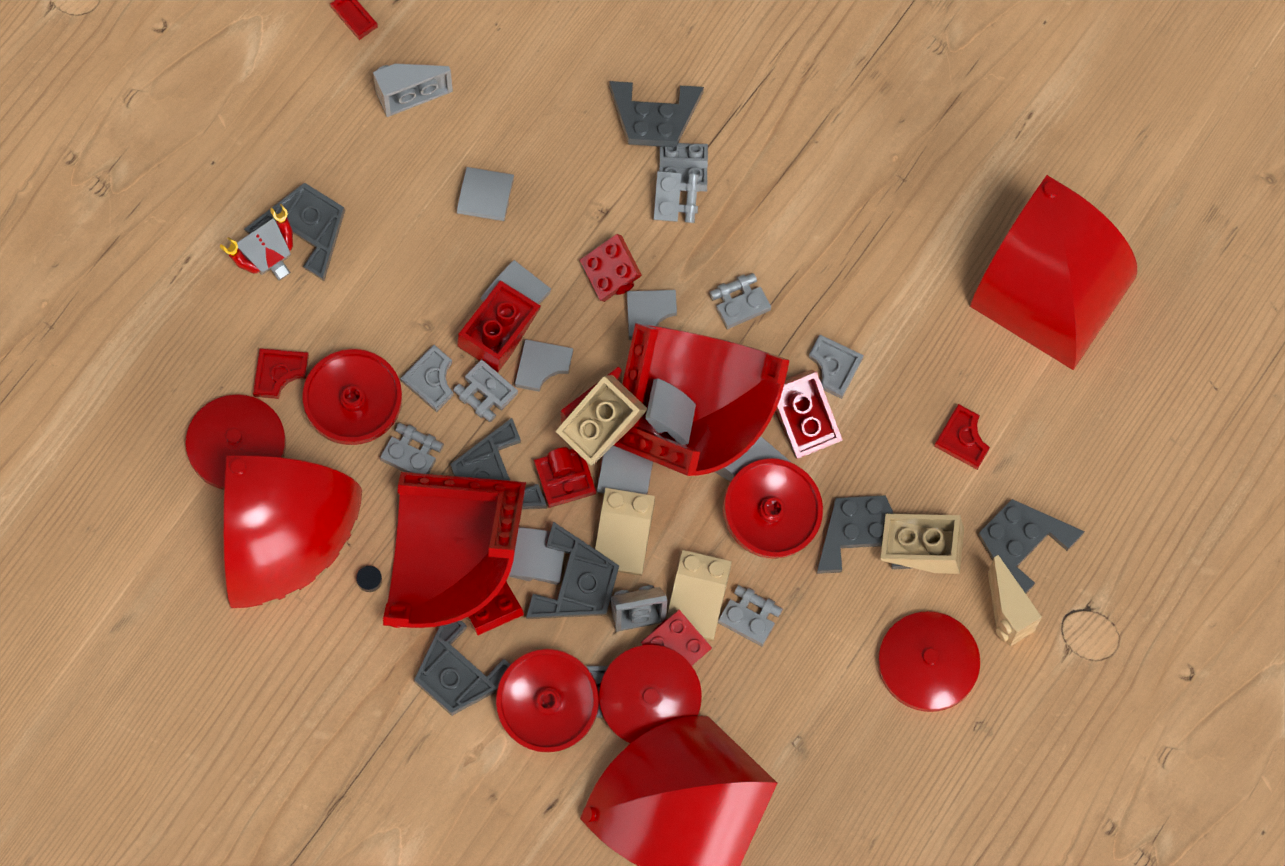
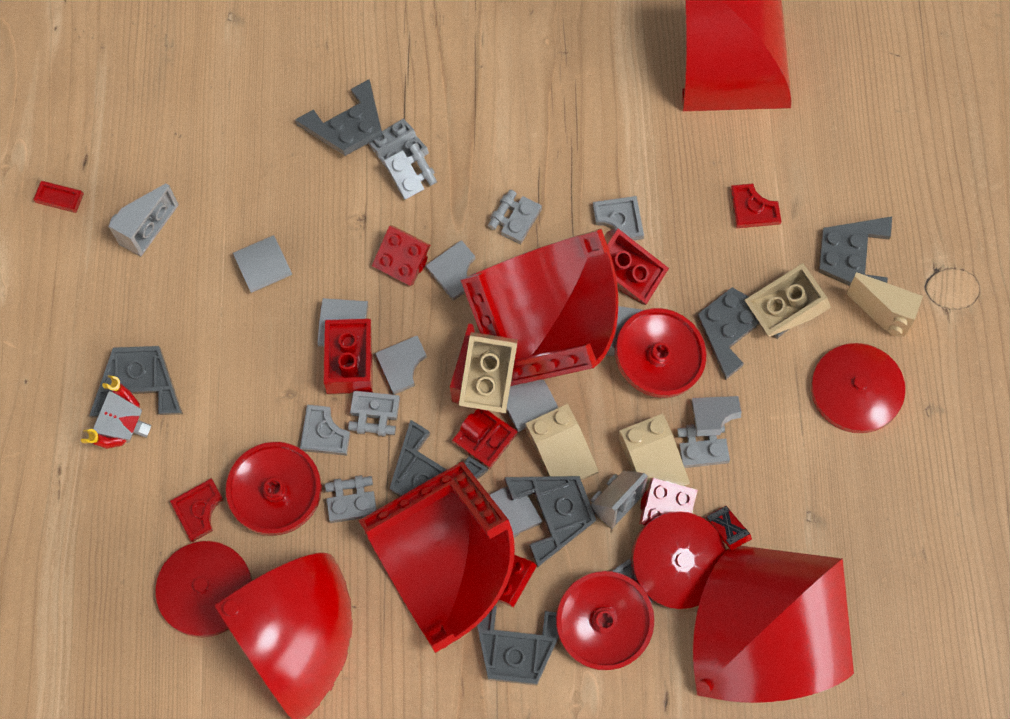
camera: 30 degrees left, 0 degrees up
(369, 579) = (391, 622): black tile -> none
(670, 411) = (533, 330): light grey slope -> none
(714, 699) = (729, 527): none -> tile
(780, 593) = (713, 412): none -> light grey tile

